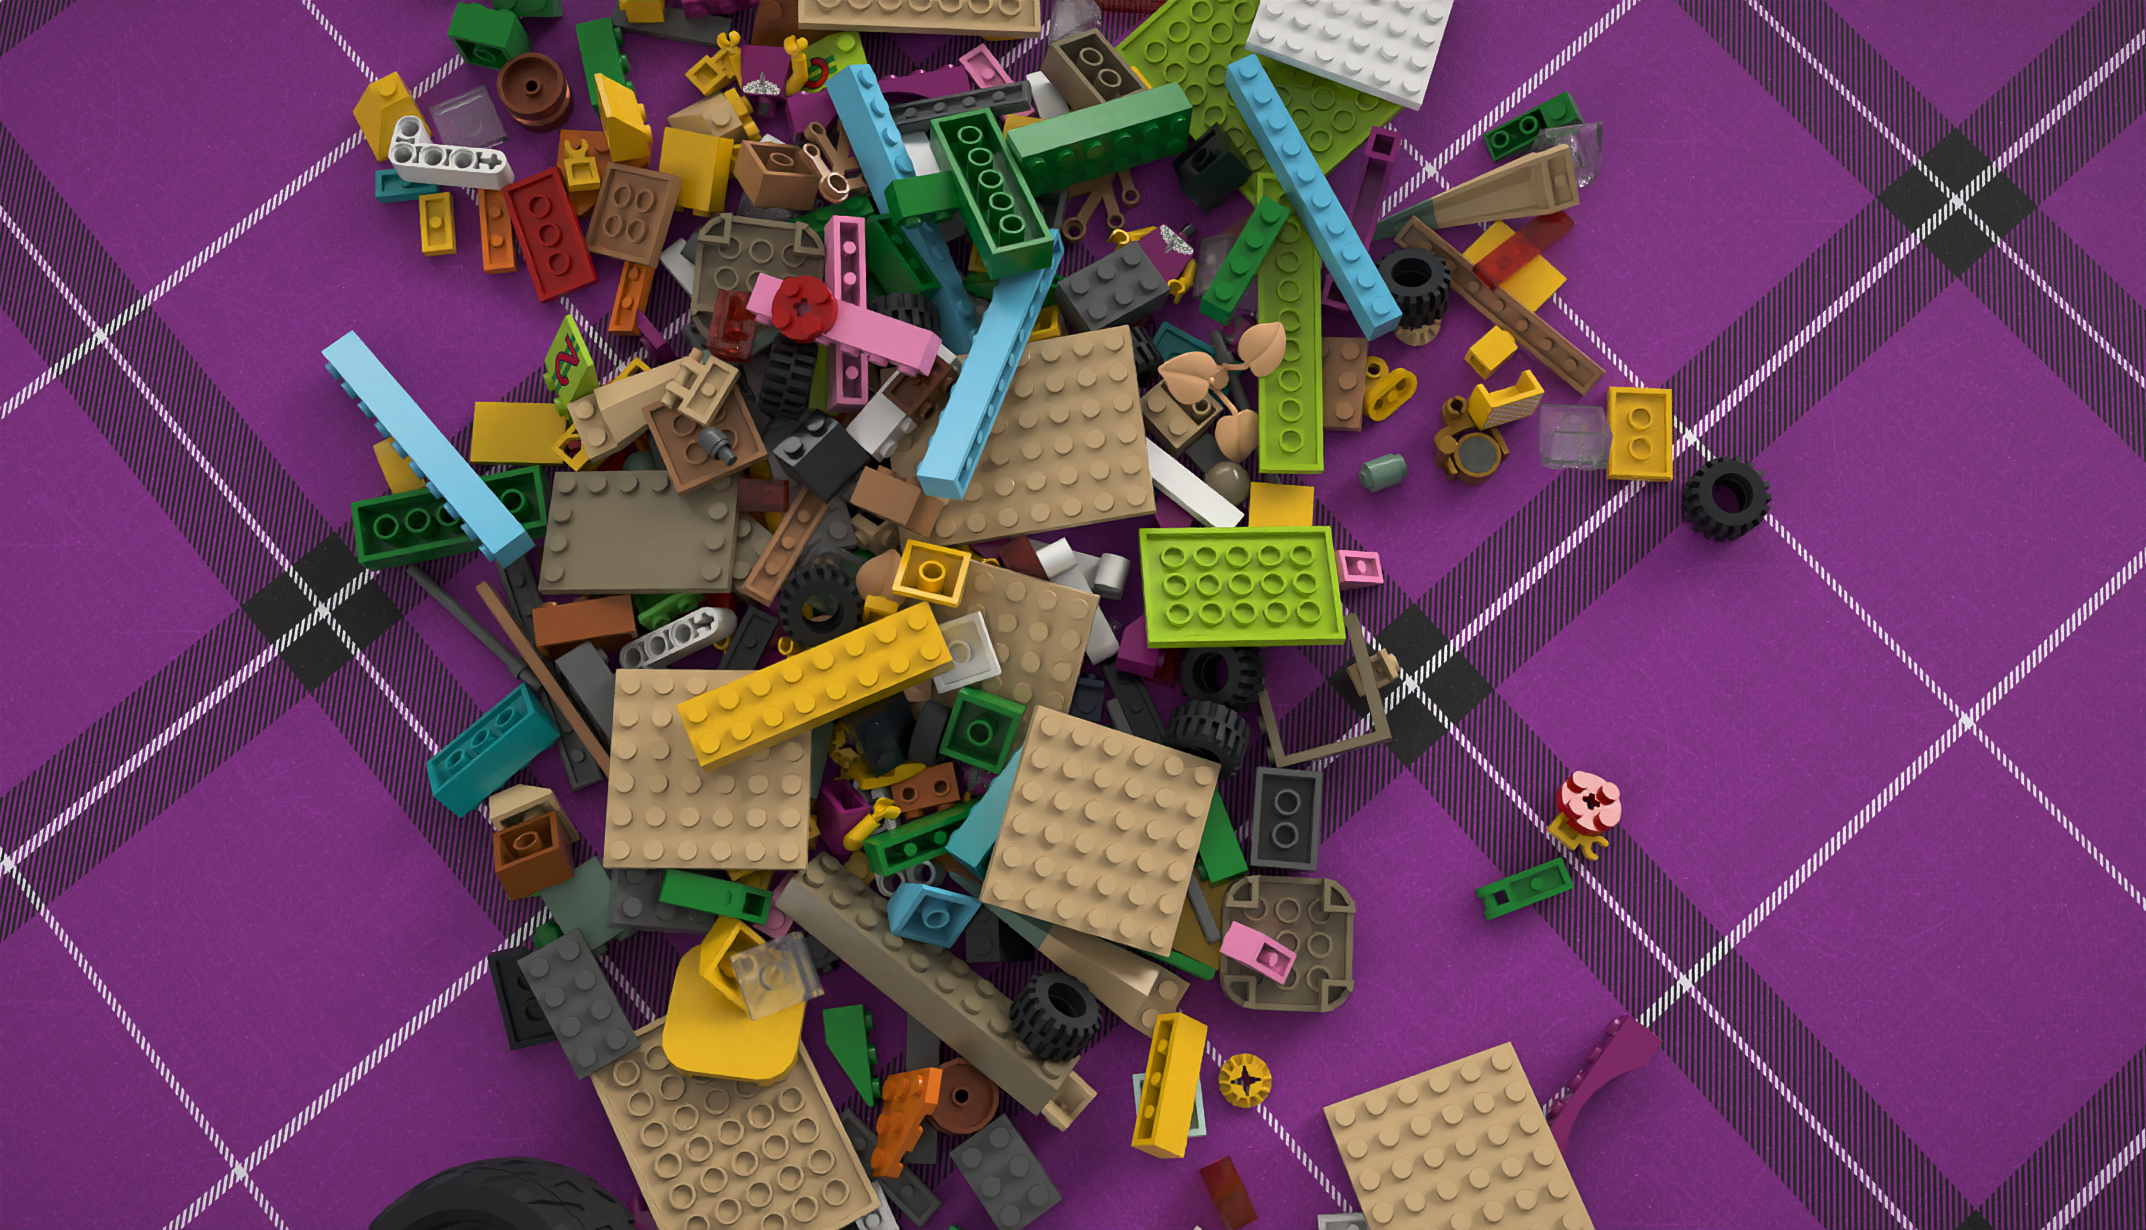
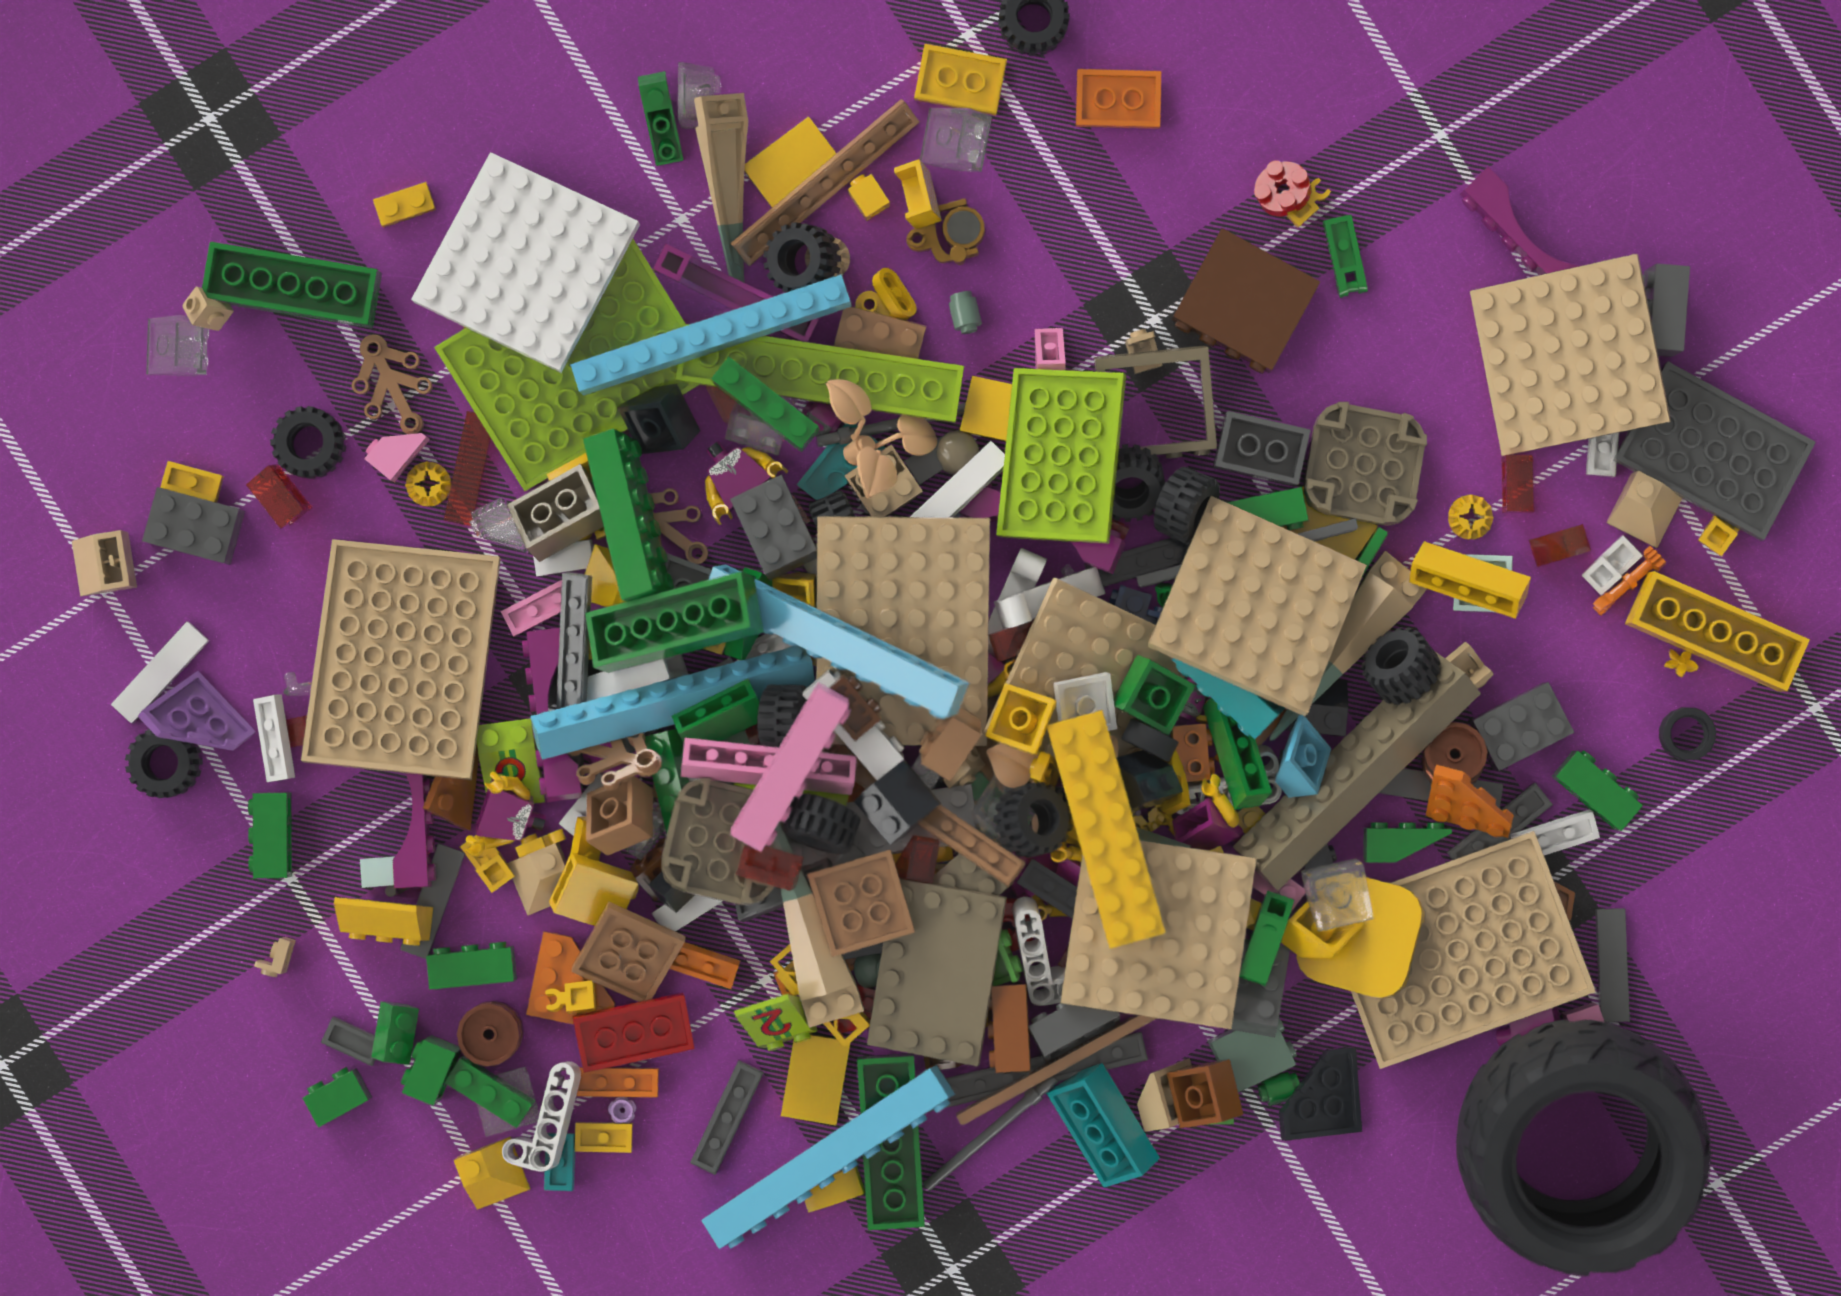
camera: 90 degrees left, 10 degrees up
(461, 236) = (616, 1115): none -> lavender plate
(470, 99) = (490, 1091): none -> green brick
(470, 348) = (727, 1117): none -> dark grey tile
(579, 1003) = (1335, 1065): dark grey plate -> none
(622, 120) = (537, 953): yellow slope -> none
(654, 341) = (754, 945): magenta plate -> none
(707, 392) = (828, 894): tan plate -> none
(717, 445) = (878, 892): dark grey cylinder -> none
(794, 293) = (769, 783): red plate -> none
(922, 199) = (672, 684): green brick -> none
(1258, 952) = (1372, 490): bright pink slope -> none
(1293, 1132) = (1517, 484): none -> clear red hinge
(1451, 778) = (1245, 301): none -> reddish brown panel
(1522, 248) = (777, 152): clear red tile -> none
(1653, 606) = (1118, 98): none -> orange plate

